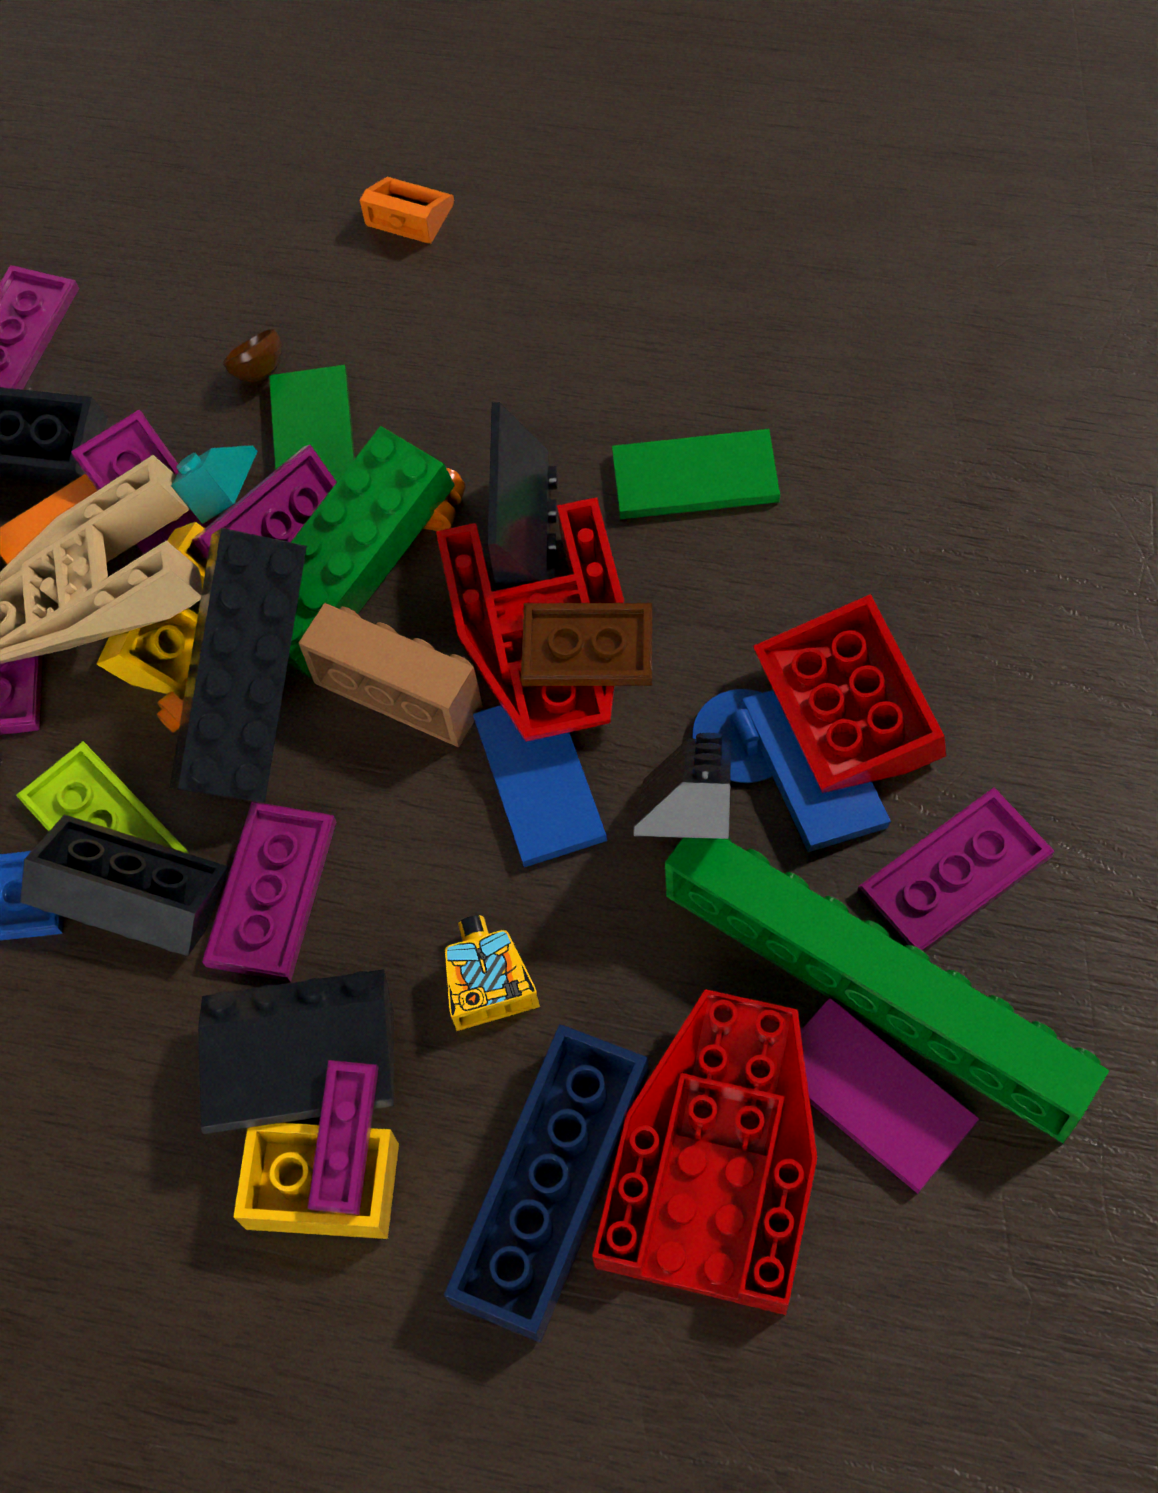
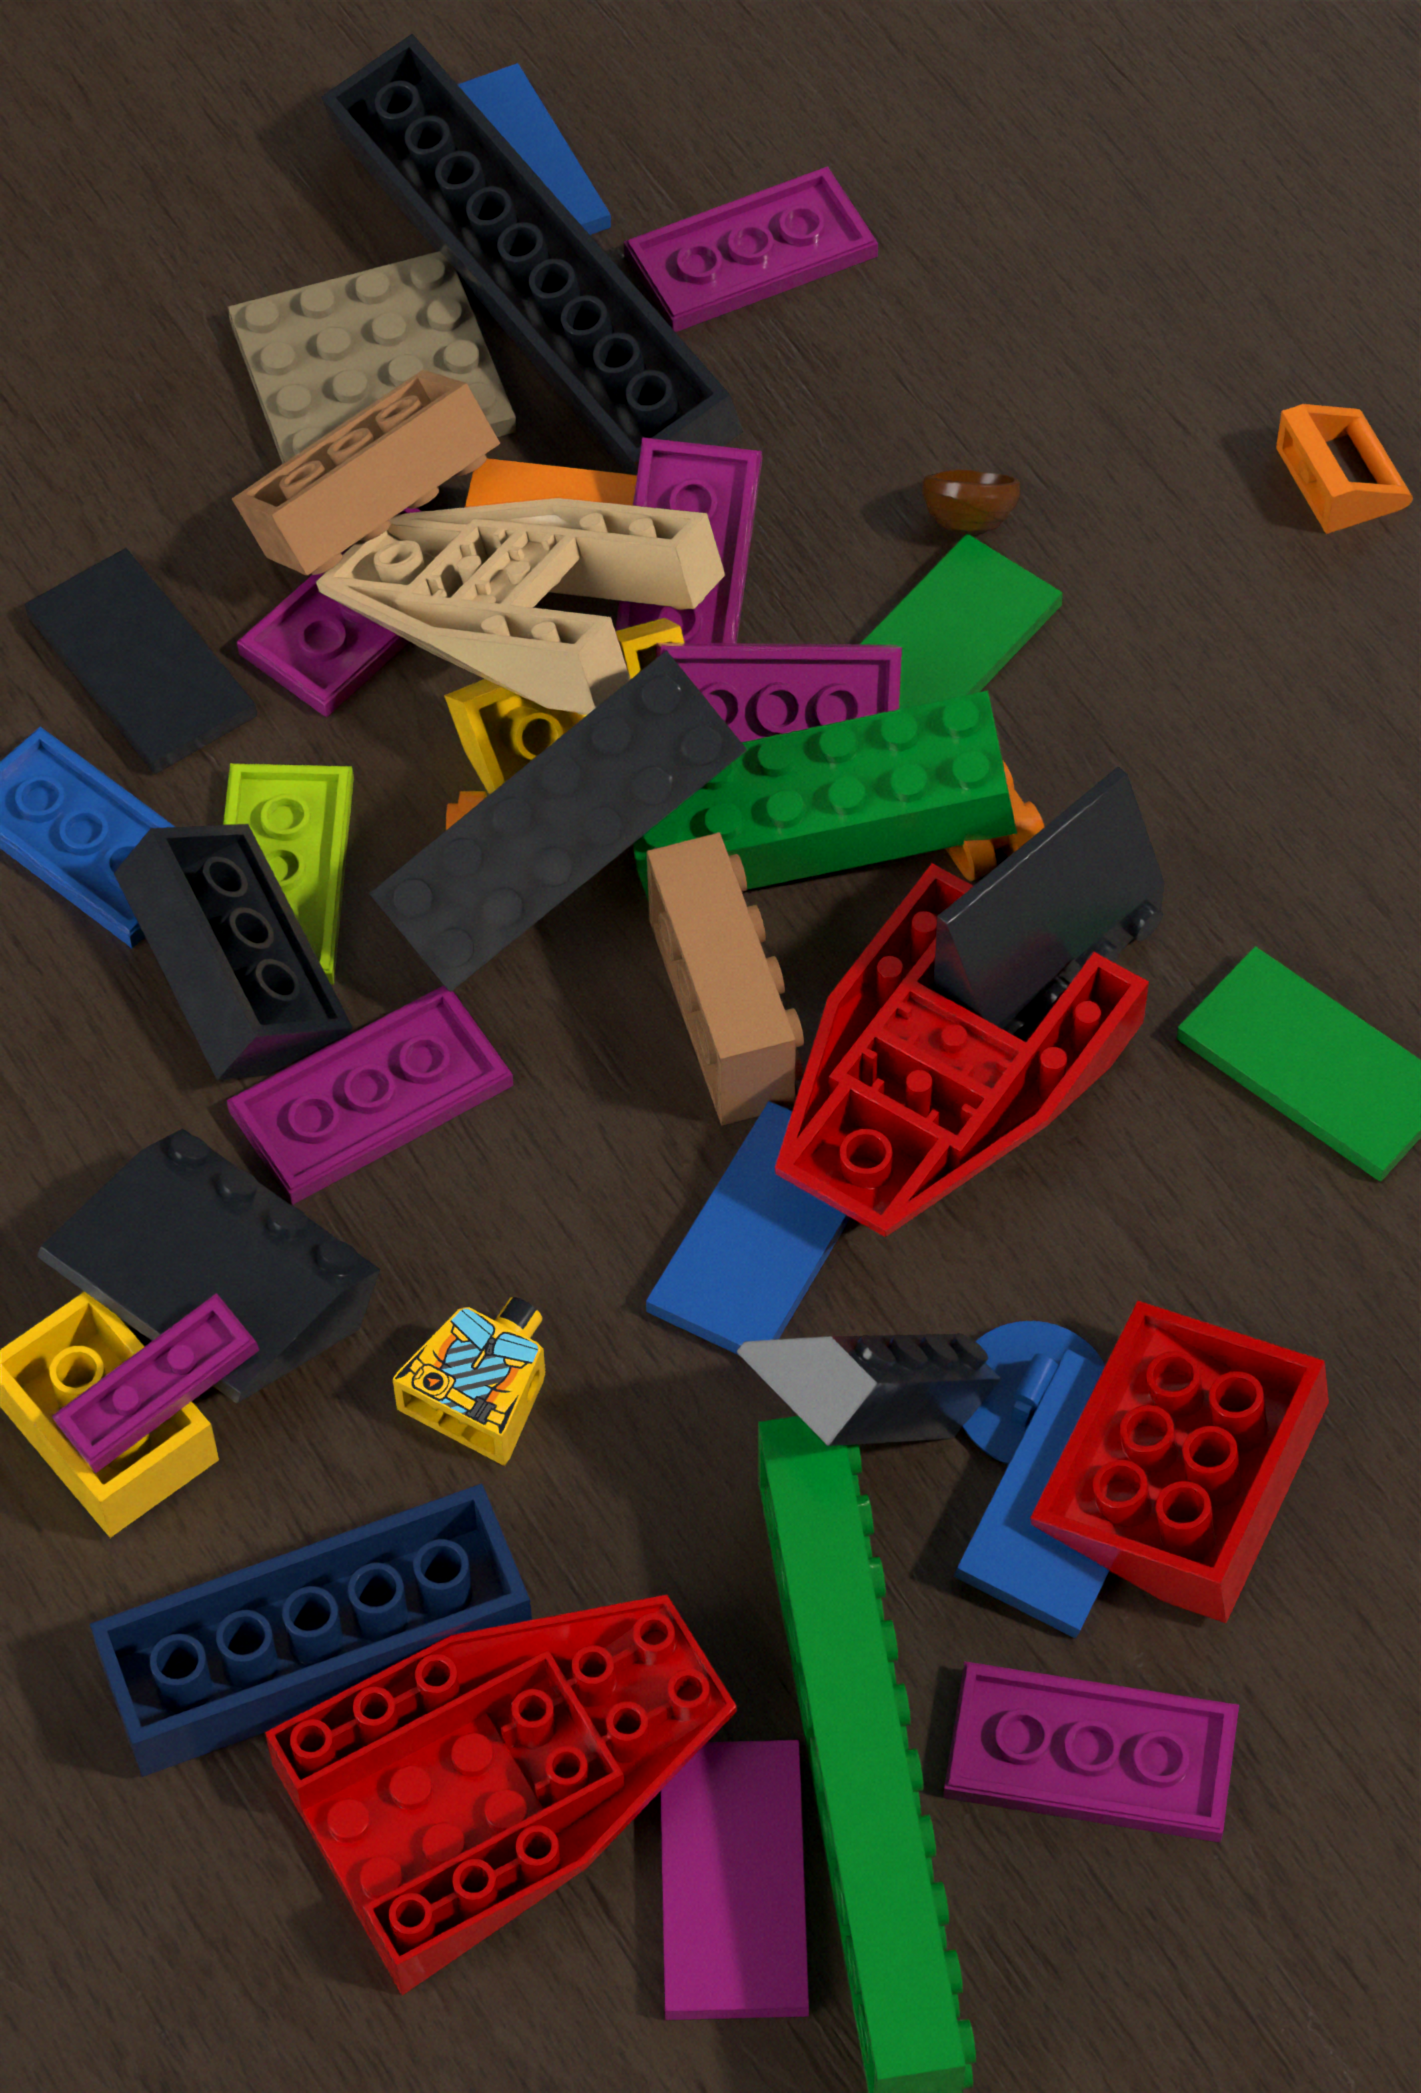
camera: 40 degrees right, 5 degrees down
(213, 479) = (759, 597): teal slope -> none
(587, 644) = (949, 1129): reddish brown tile -> none

